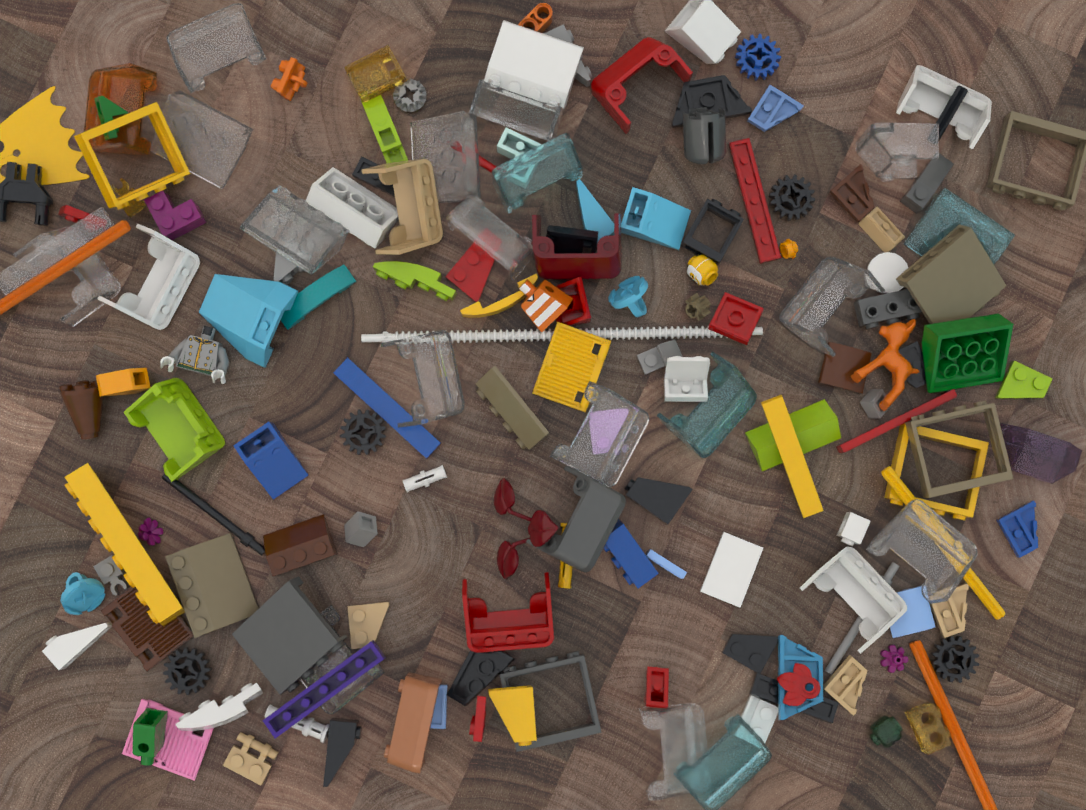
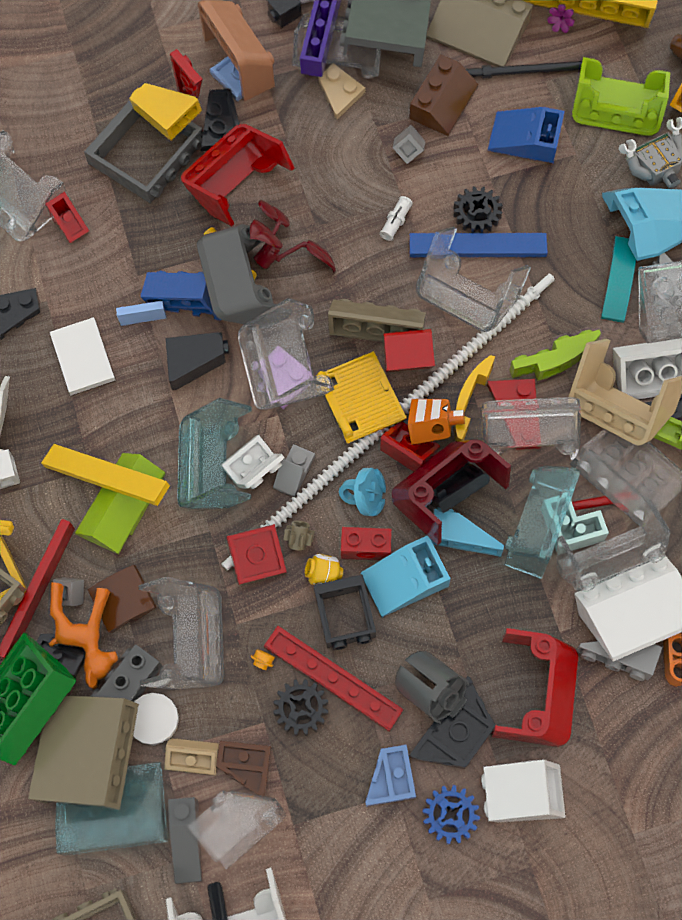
camera: 145 degrees right, 15 degrees down
(516, 361) = (408, 350): none -> red slope
(659, 262) = (365, 543): none -> red brick

